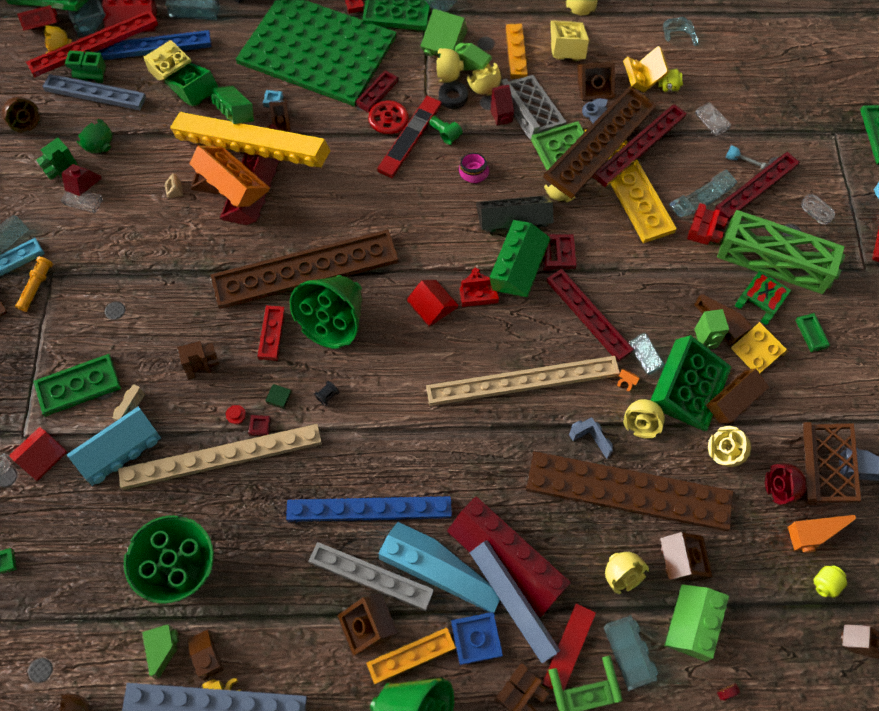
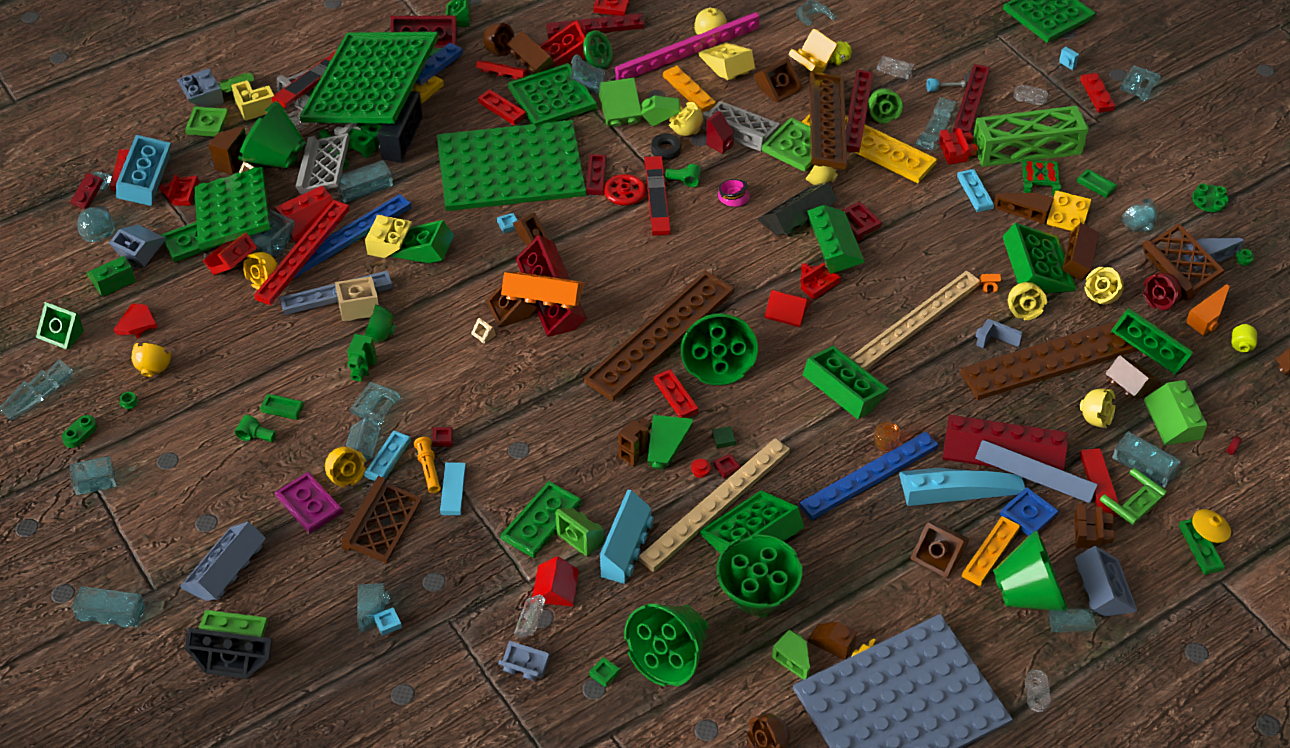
camera: 30 degrees left, 15 degrees down
(20, 114) = (285, 340): reddish brown cylinder -> none
(35, 316) = (453, 489): none -> medium azure tile
(38, 201) = (370, 399): none -> clear light blue plate
(63, 571) = (666, 642): none -> green cone
(67, 264) = (442, 437): none -> dark red tile
(78, 179) = (397, 362): dark red slope -> none
(86, 65) = (315, 272): green hips -> none
(87, 201) = (407, 381): clear plate -> none
(87, 413) = (578, 530): none -> bright green slope
(99, 103) = (356, 298): none -> tan slope
(131, 400) = (604, 513): tan plate -> none
(222, 372) = (666, 439): none -> green slope
(228, 499) = (756, 515): none -> green slope
(233, 104) = (489, 236): green brick -> none
(251, 139) = (531, 254): yellow brick -> none
(326, 393) = (762, 414): black bush -> none
(371, 576) = (912, 516): light grey plate -> none
(409, 482) = (887, 436): none -> clear orange head
(416, 405) = (844, 381): none -> green slope
(448, 65) = (647, 123): light yellow cylinder -> none
(544, 11) = (687, 47): none -> dark pink plate
(589, 315) = (920, 252): dark red plate -> none
(594, 109) = (797, 104): sand blue plate -> none
(646, 353) = (988, 257): clear light blue plate -> none
(669, 152) = (885, 105): none -> bright green cylinder
(690, 278) = (975, 190): none -> medium azure tile
(712, 328) = (1025, 210): bright green brick -> none
(732, 533) = (1152, 340): none -> green slope
(825, 393) = (1141, 217): none -> clear light blue cylinder

